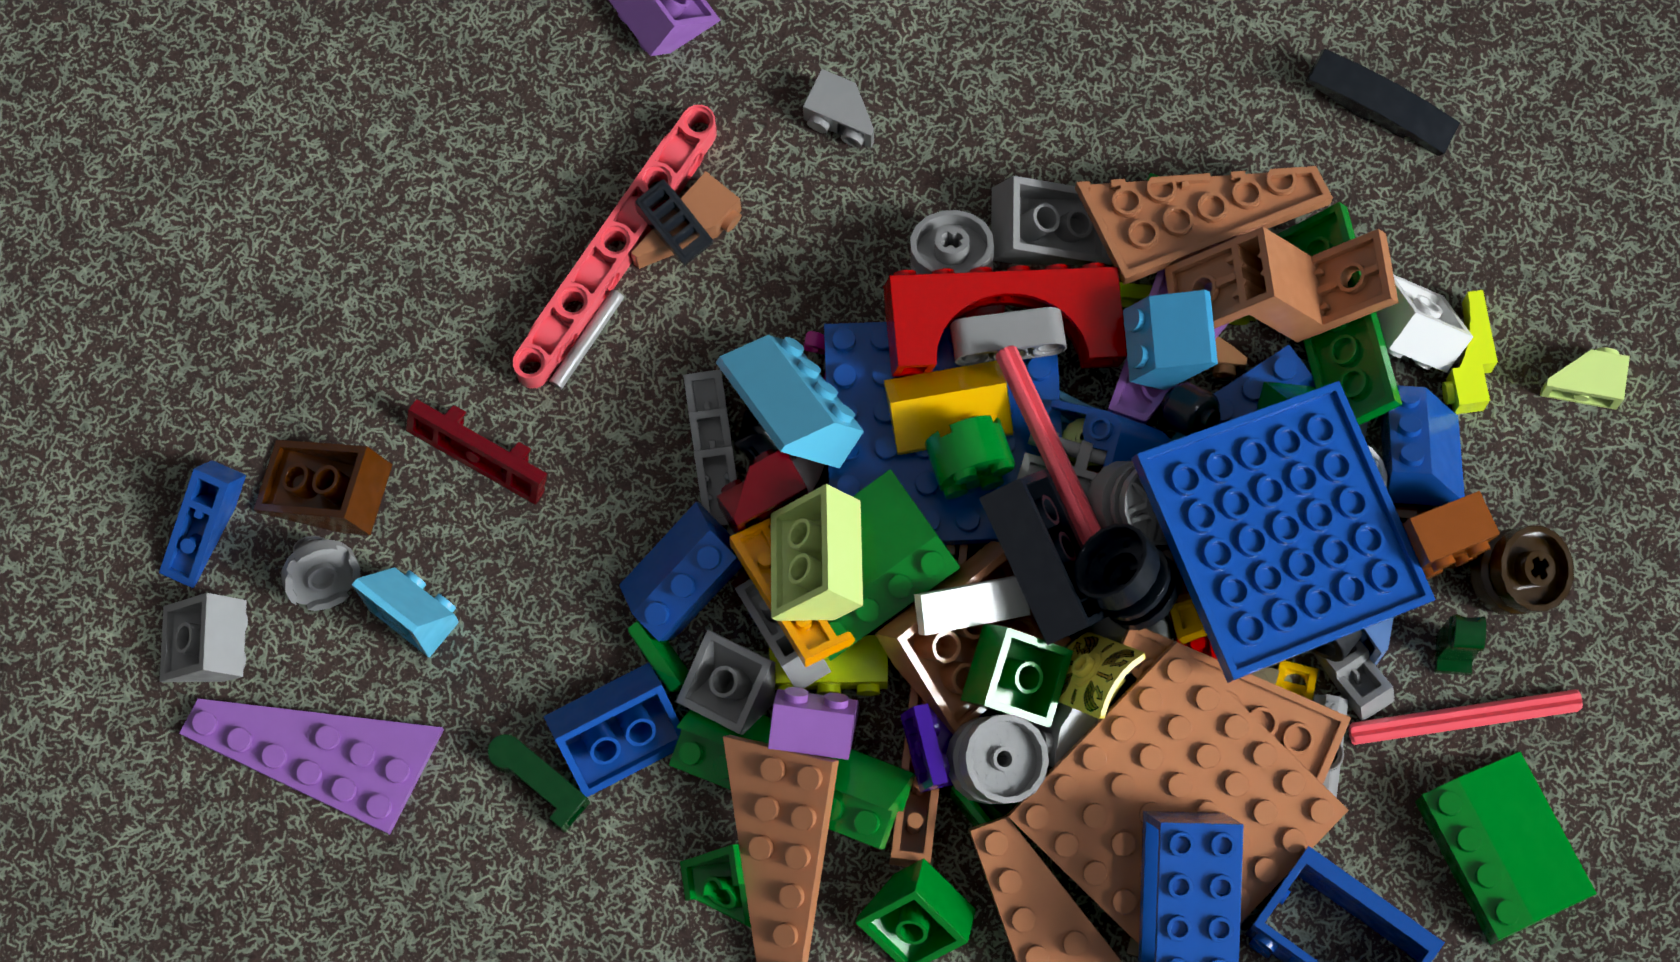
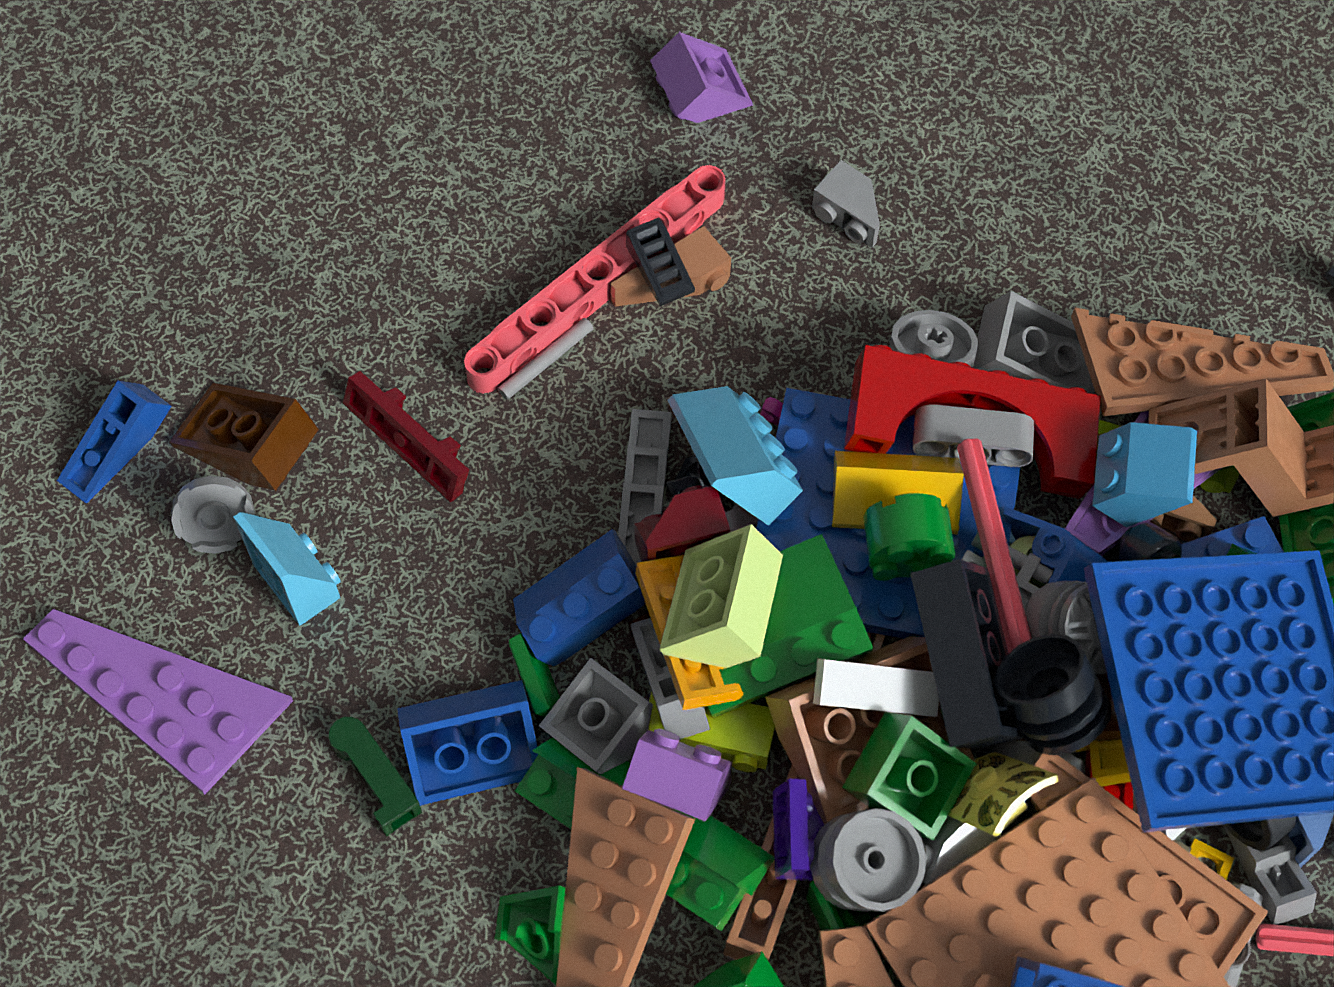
camera: 10 degrees right, 10 degrees down
(203, 639) = (79, 552): light grey slope -> none

